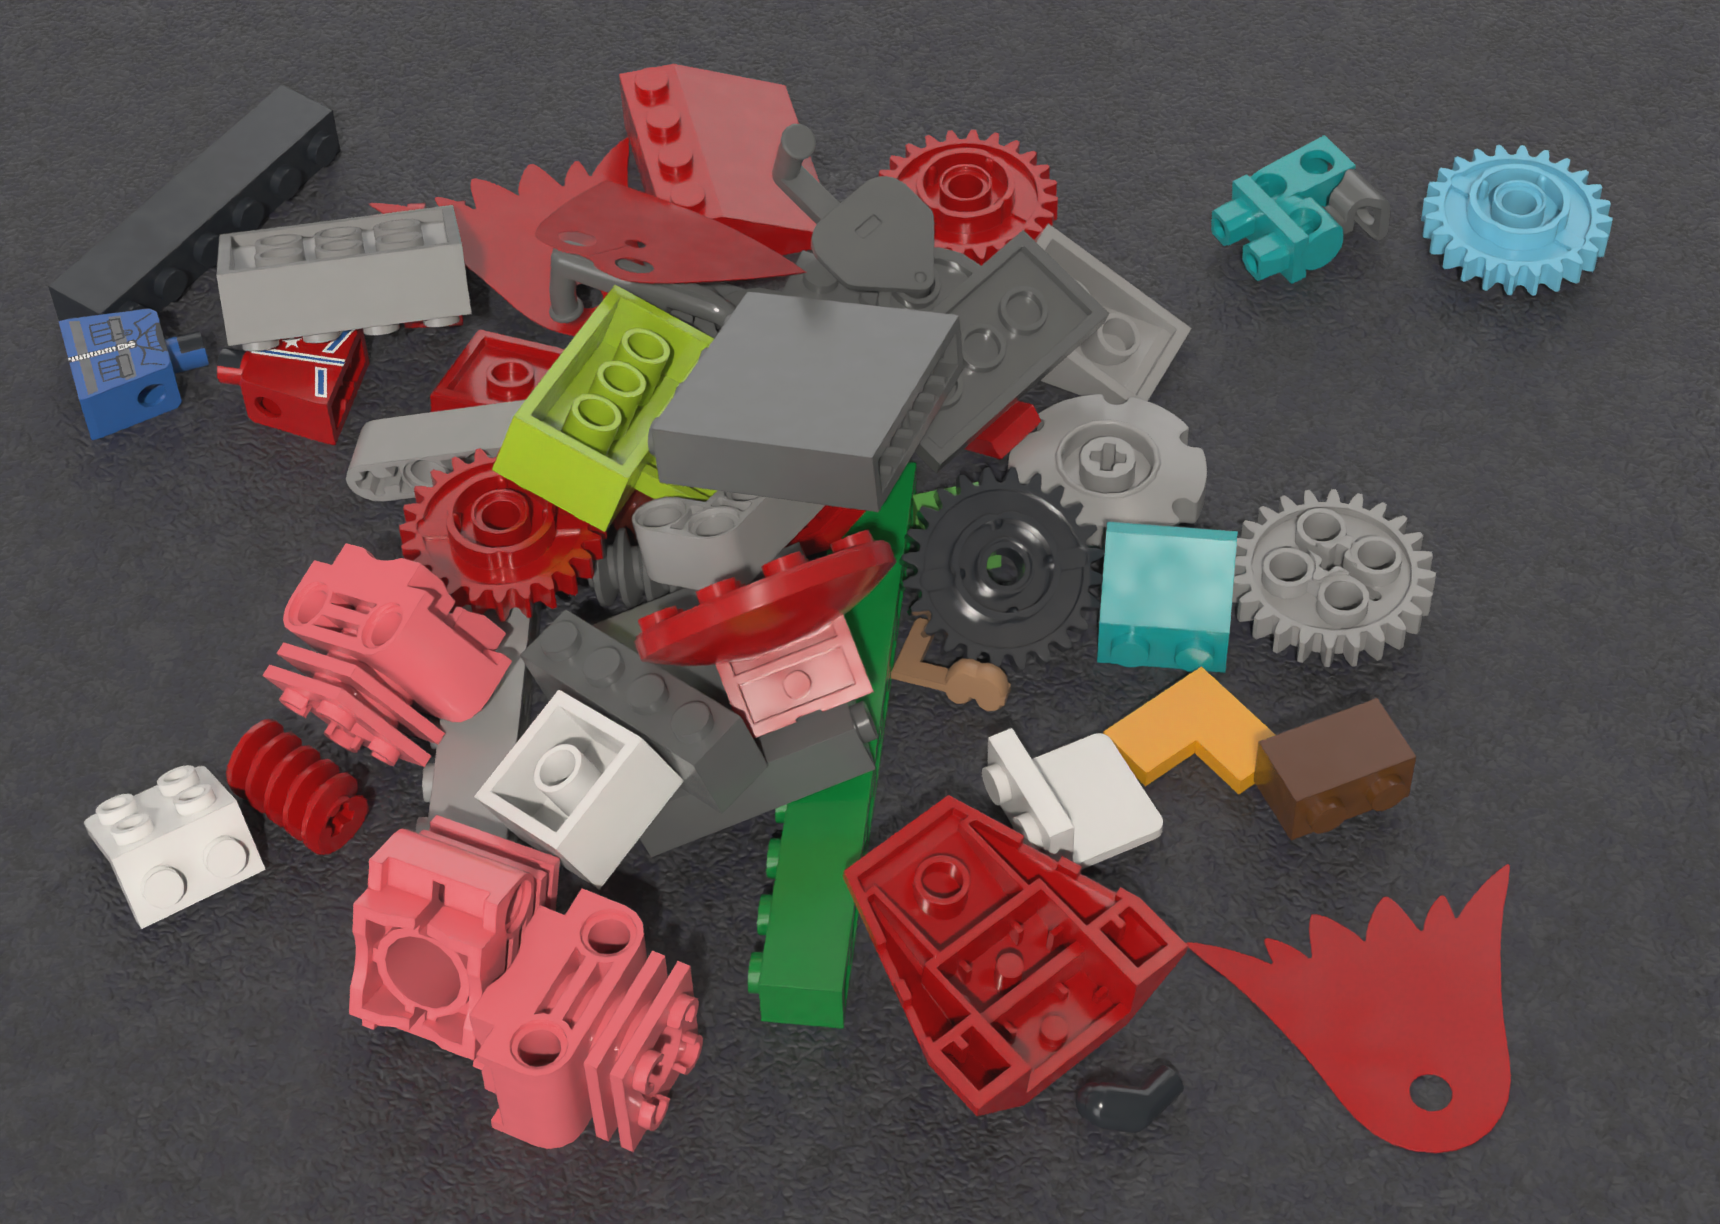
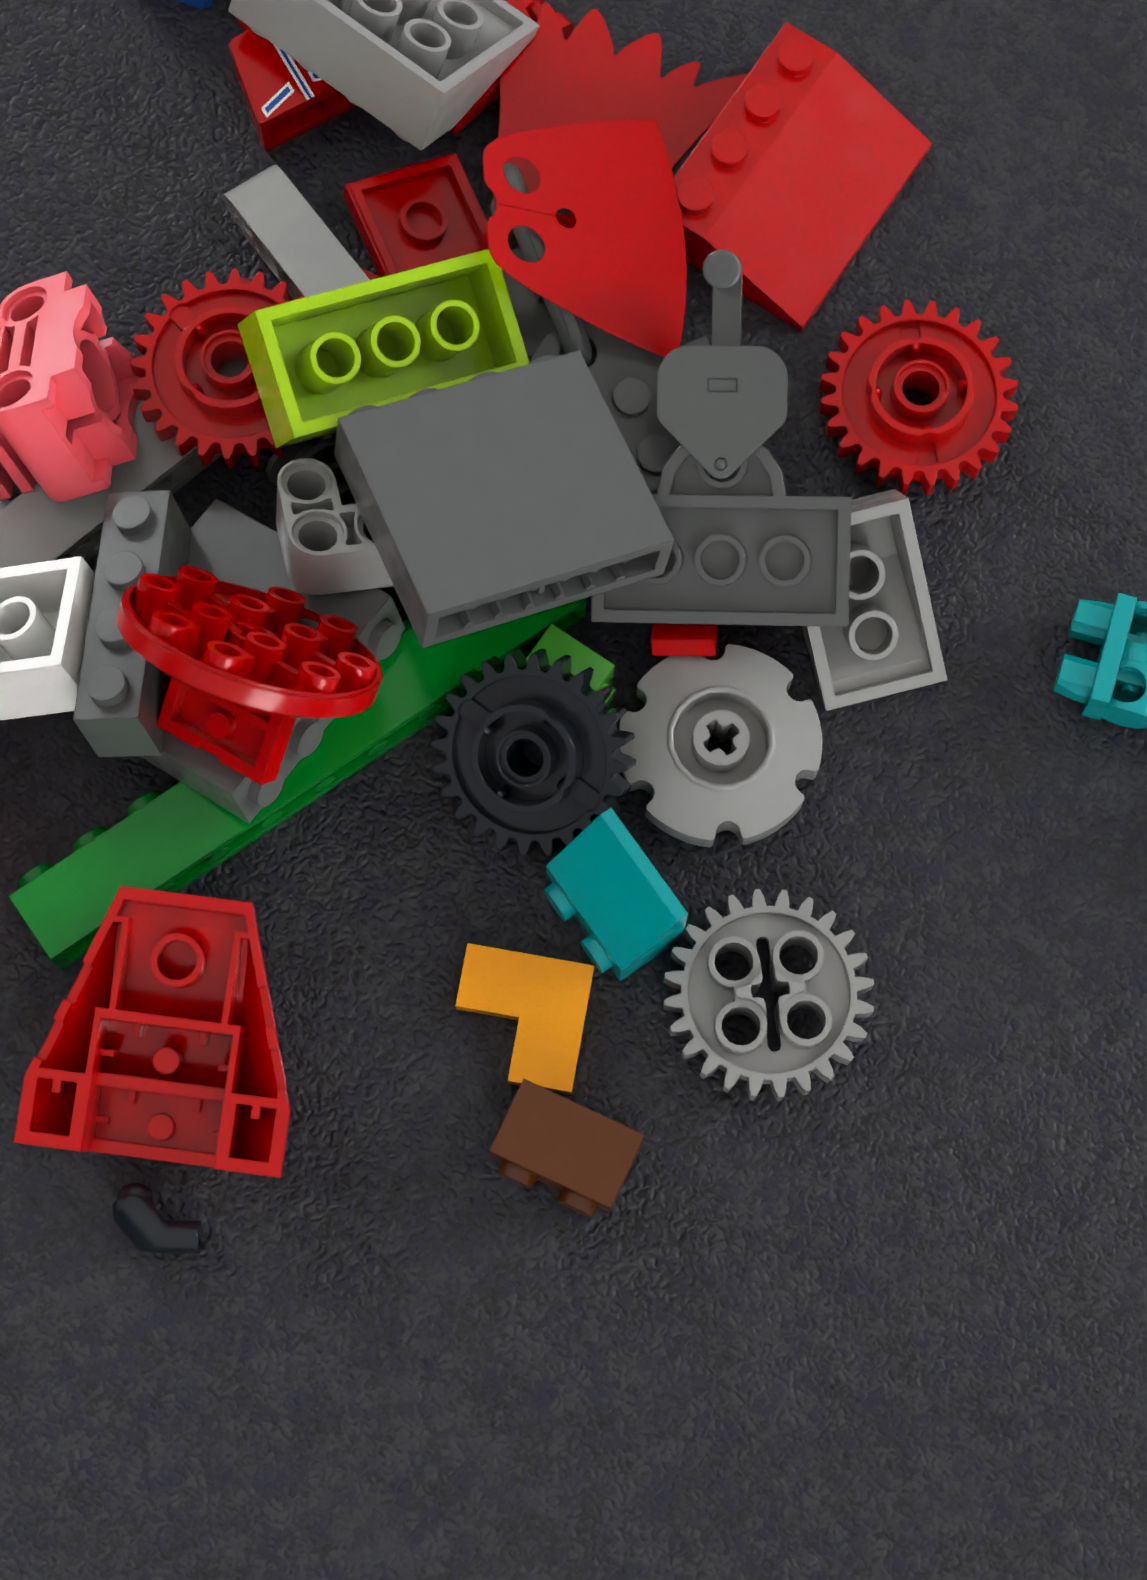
camera: 45 degrees right, 25 degrees up
(961, 682) = (426, 796): medium nougat piece -> none
(1072, 799) = (377, 973): white bracket -> none
(1393, 1012) = (404, 1350): red piece -> none

